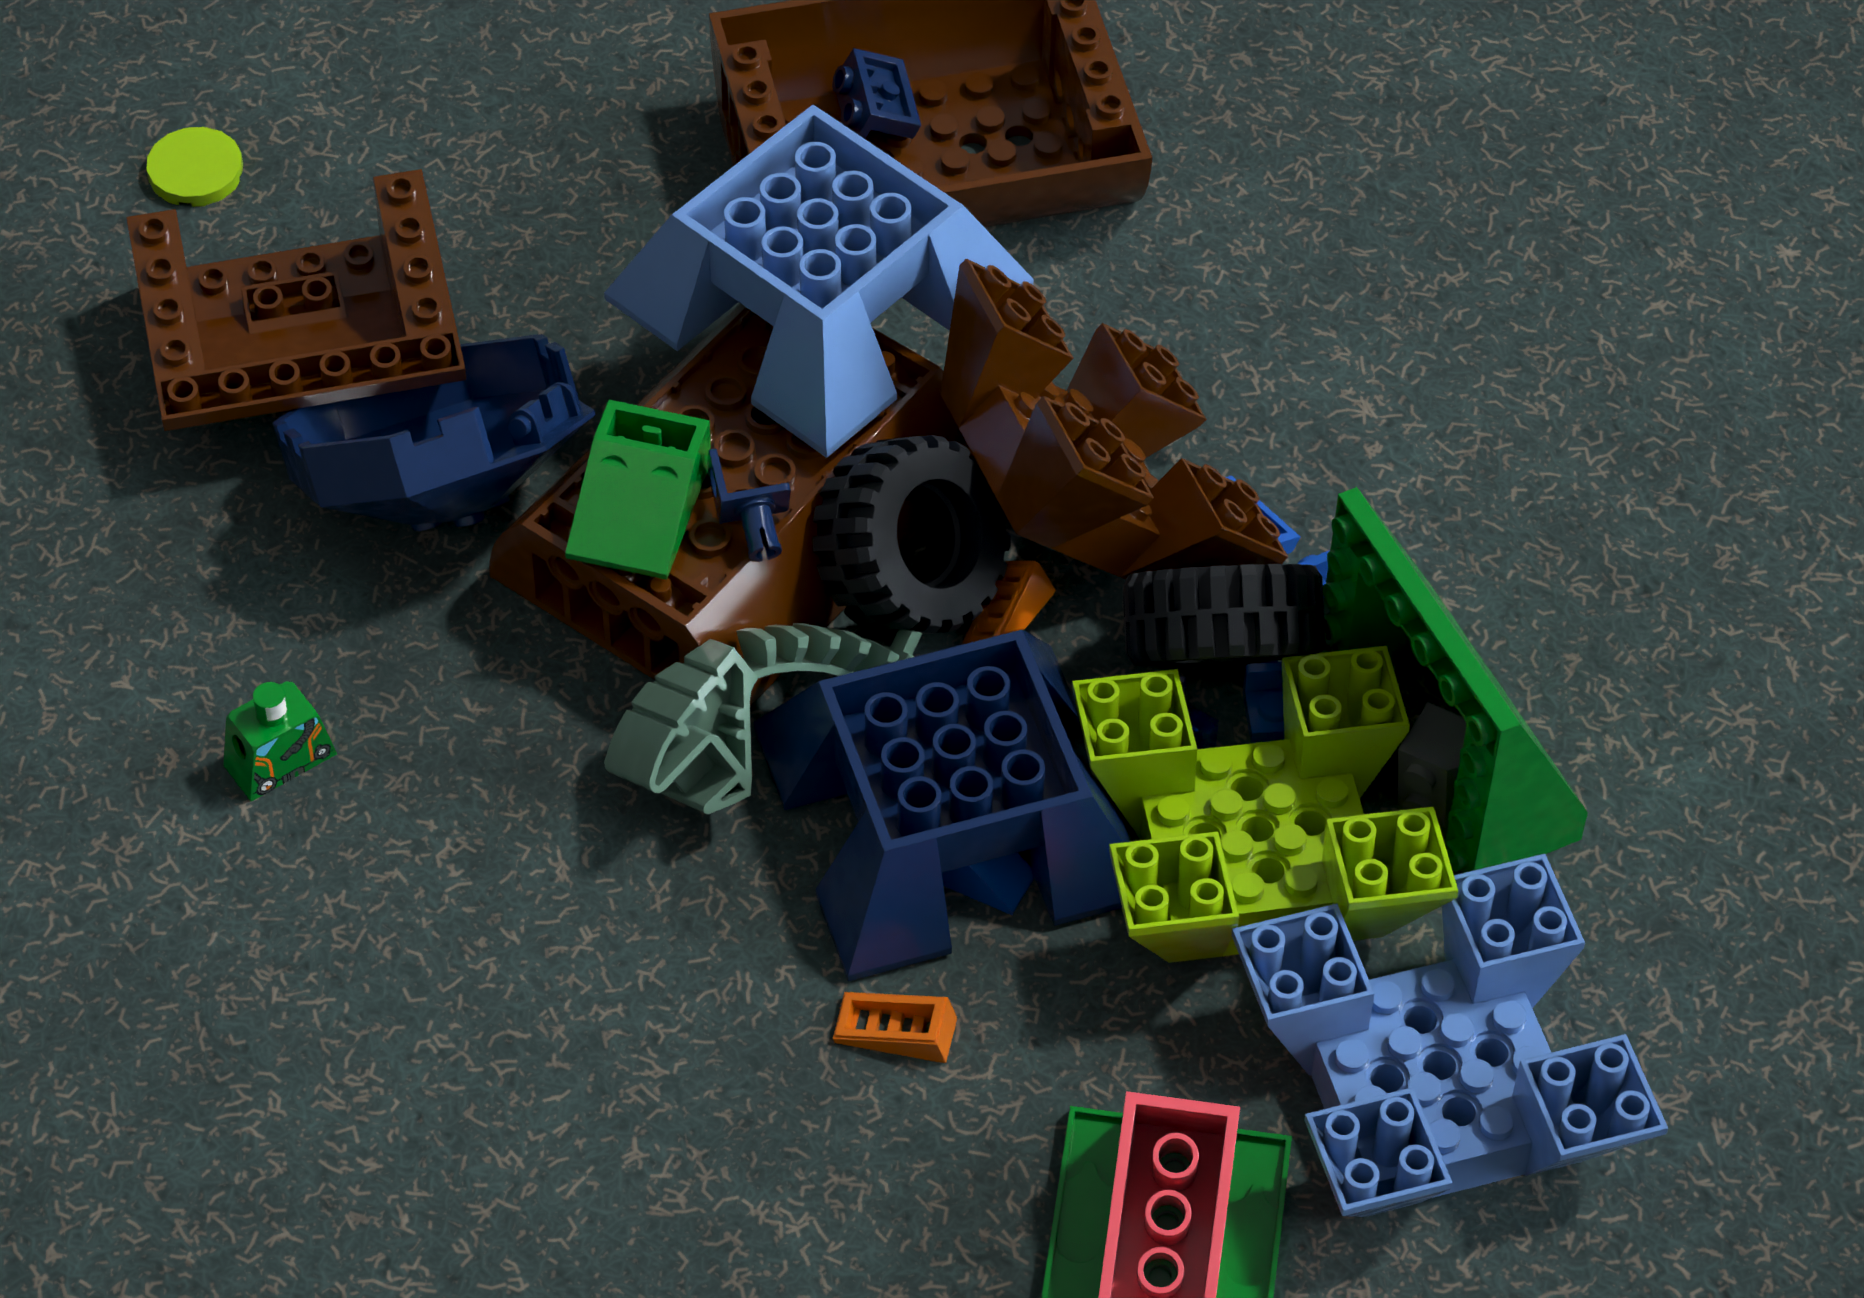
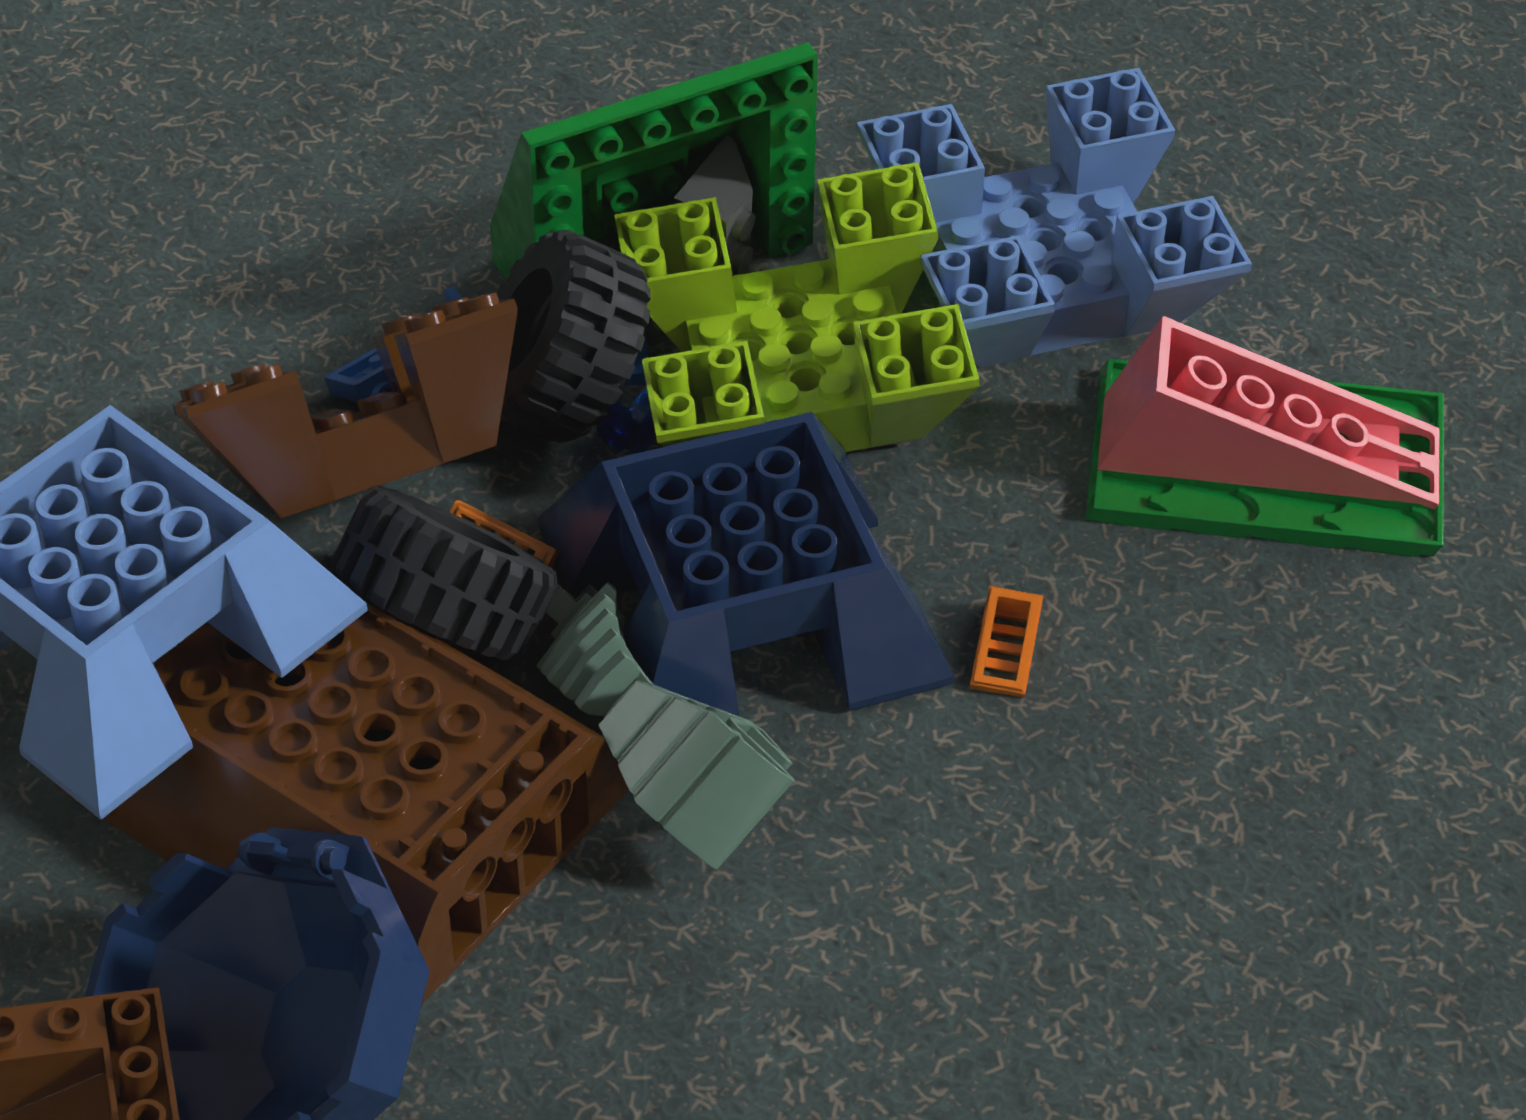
camera: 90 degrees left, 5 degrees down
(639, 489) = (421, 756): green slope -> none
(751, 507) = (444, 665): dark blue bracket -> none

